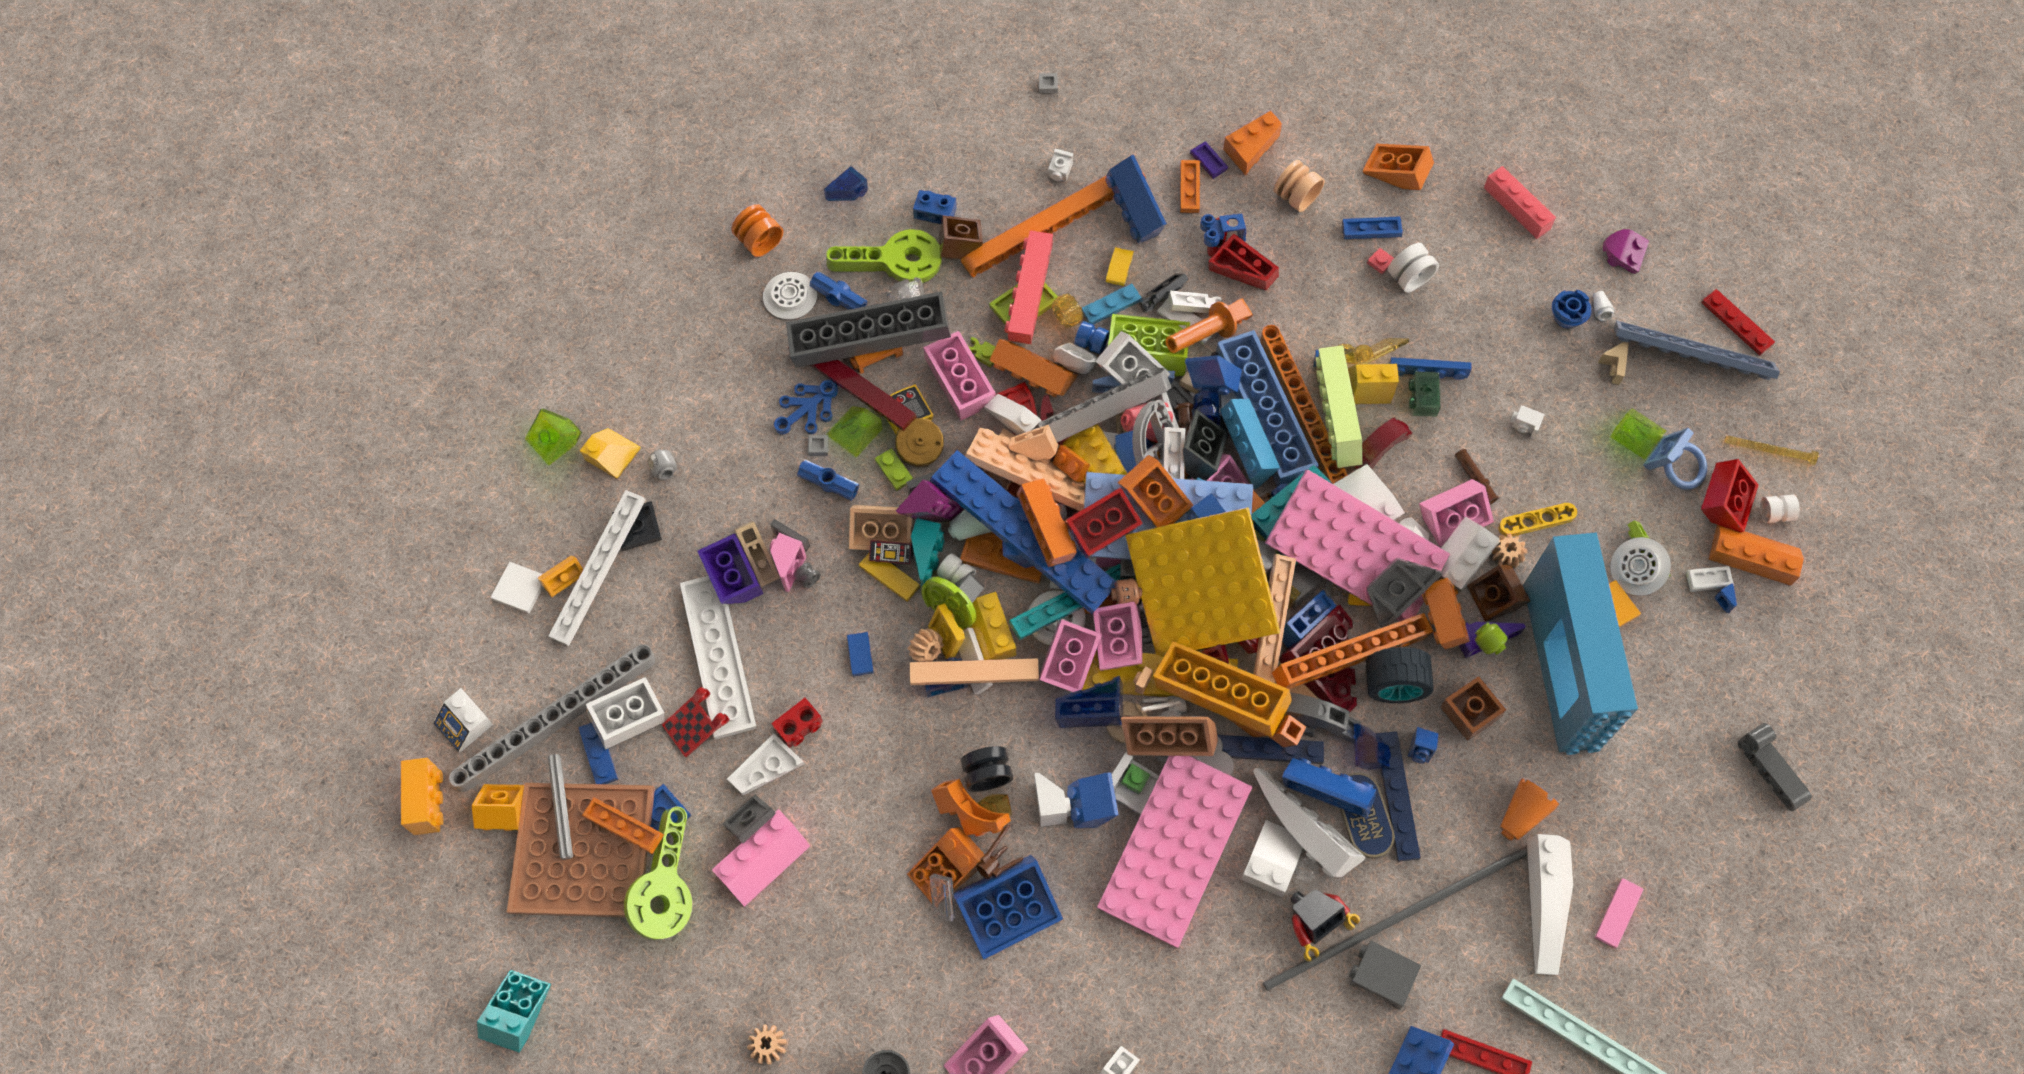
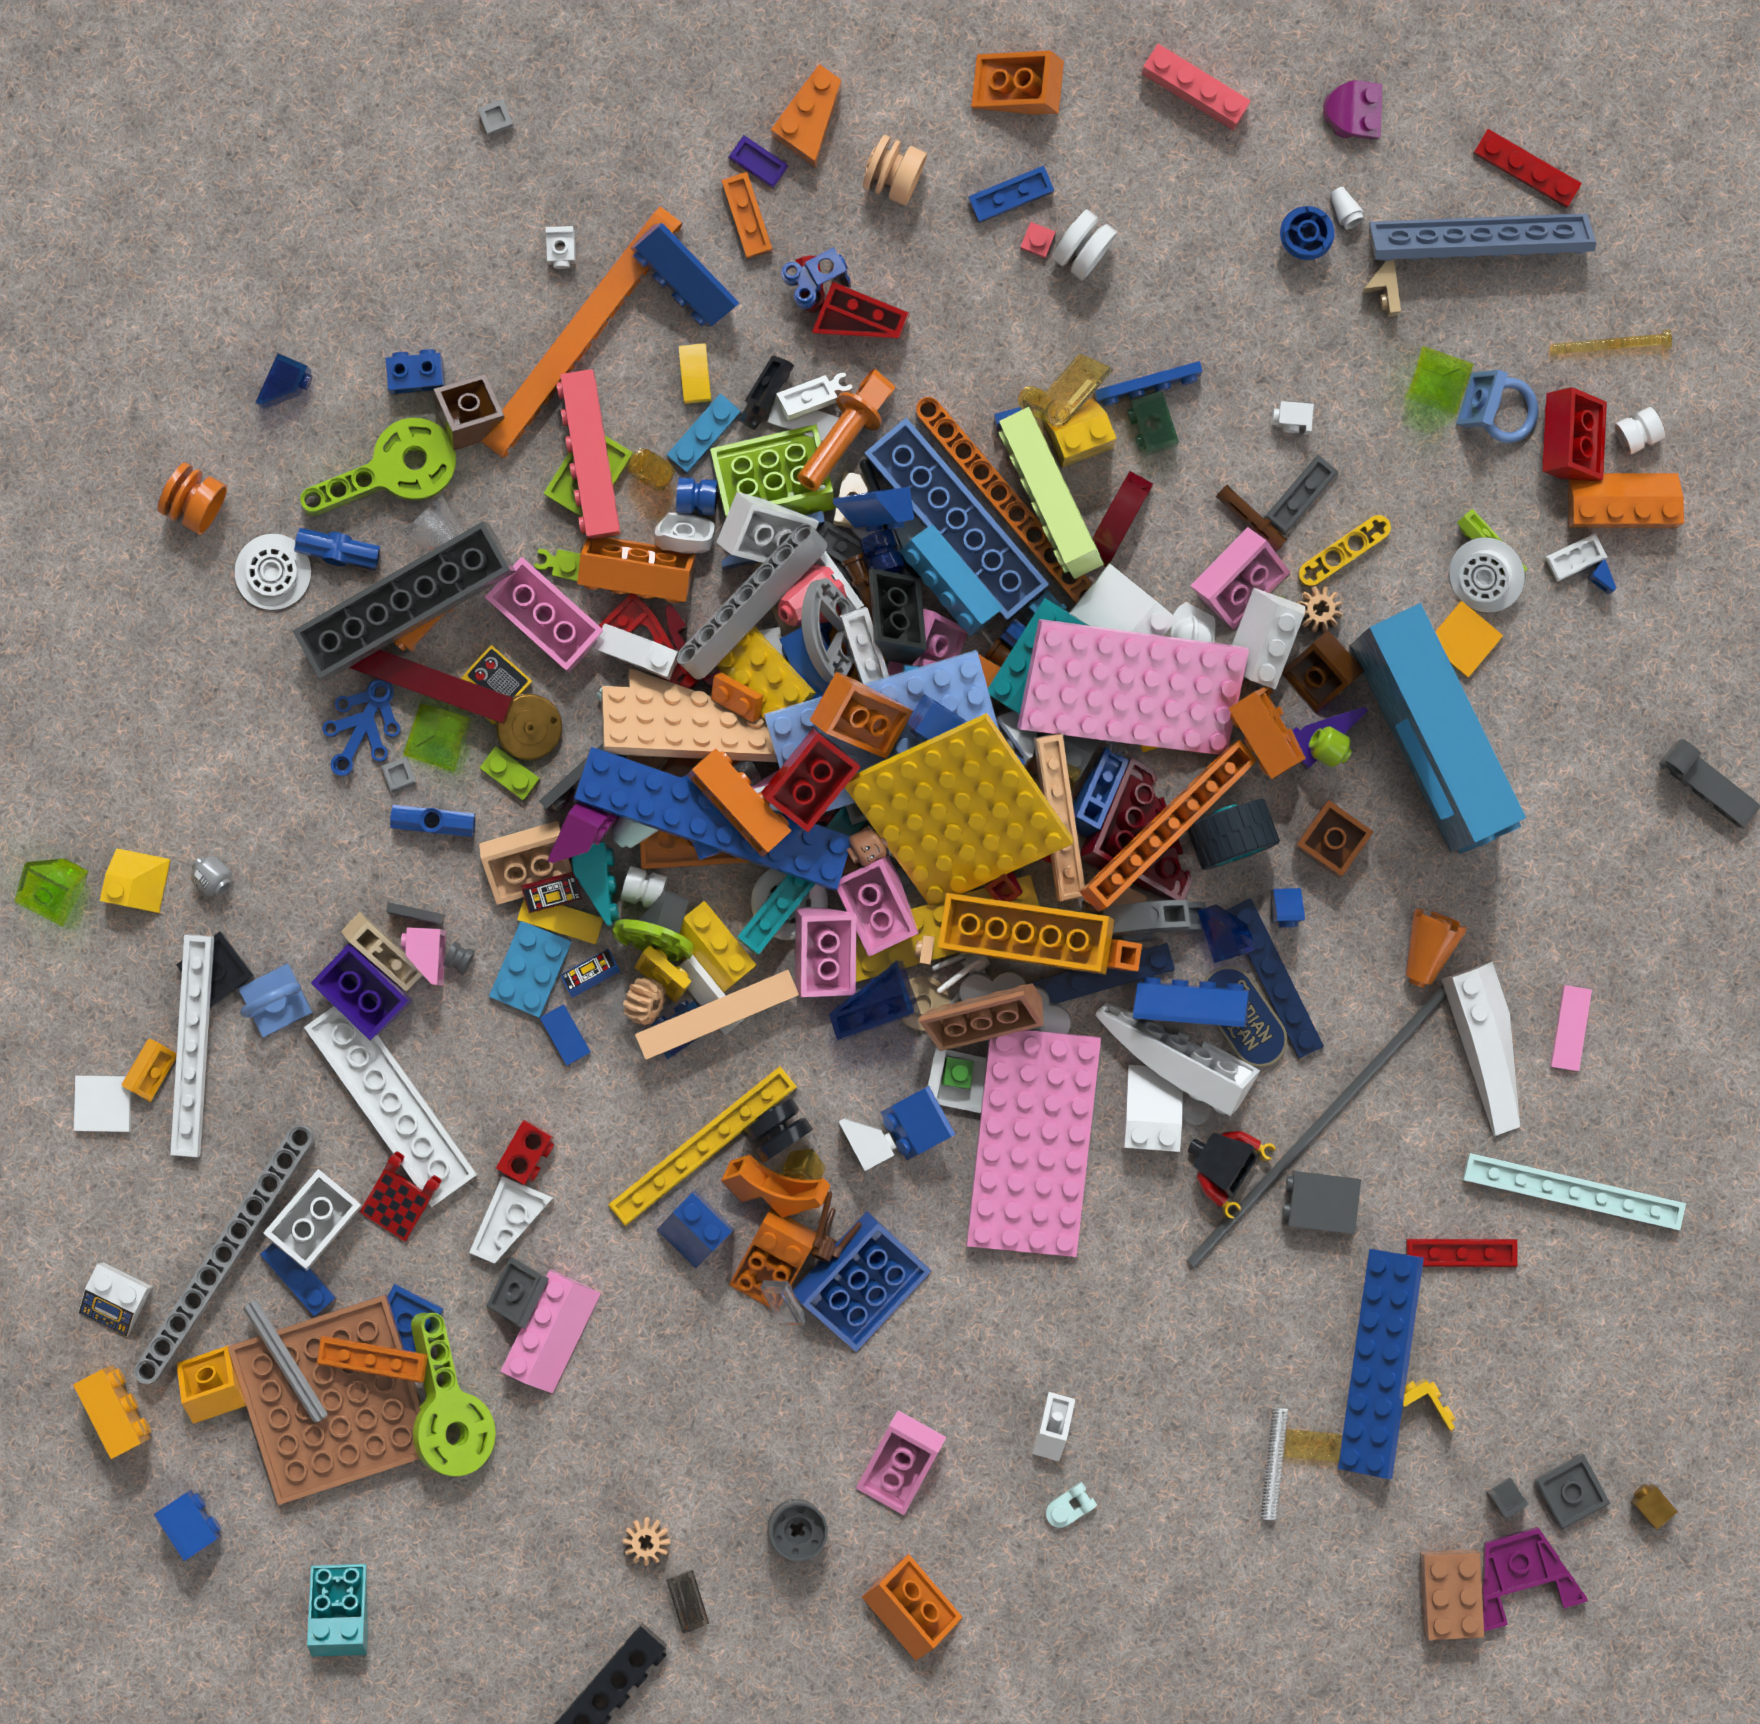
camera: 20 degrees left, 20 degrees up
(434, 900) = (188, 1524): none -> blue slope
(667, 560) = (274, 1000): none -> medium blue tile
(854, 601) = (530, 969): none -> dark azure plate
(895, 617) = (590, 973): none -> tile
(898, 819) = (695, 1229): none -> blue slope
(919, 768) = (702, 1146): none -> yellow tile
(1035, 444) = (681, 689): light nougat slope -> none
(1398, 588) = (1200, 723): dark grey wing -> none
(1517, 473) = (1301, 494): none -> dark grey tile

